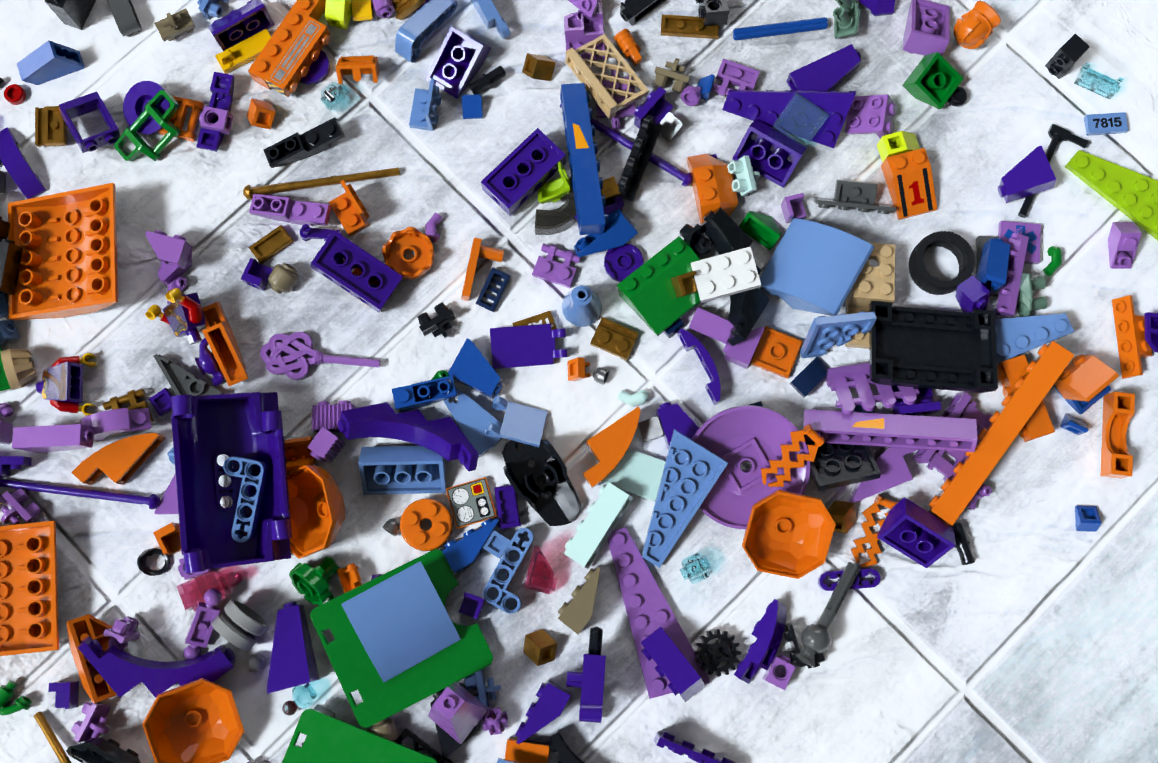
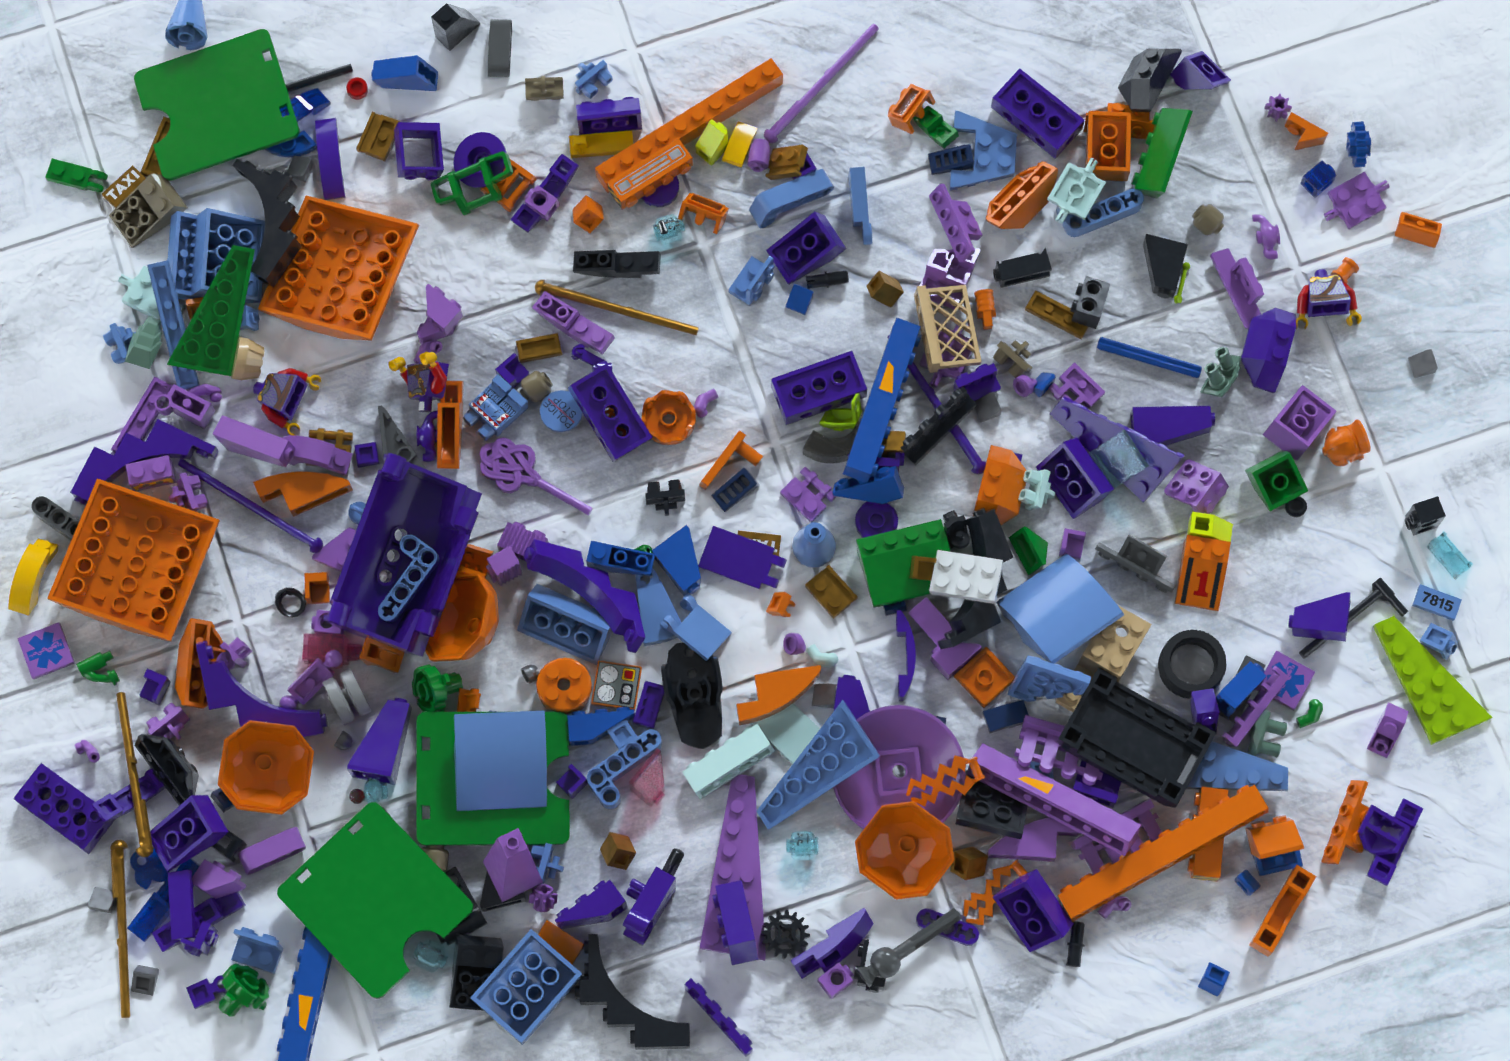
camera: 25 degrees right, 5 degrees down
(254, 573) = (381, 655): none -> orange slope
(257, 311) = (495, 408): none -> medium blue hips
(314, 290) = (560, 411): none -> medium blue piece
(350, 210) = (629, 351): orange bracket -> none
(580, 609) = (675, 828): dark tan slope -> none
(601, 375) = (800, 621): flat silver hinge -> none
(605, 397) = (794, 644): none -> medium lavender tile
(1125, 152) = (1440, 640): none -> medium blue bracket

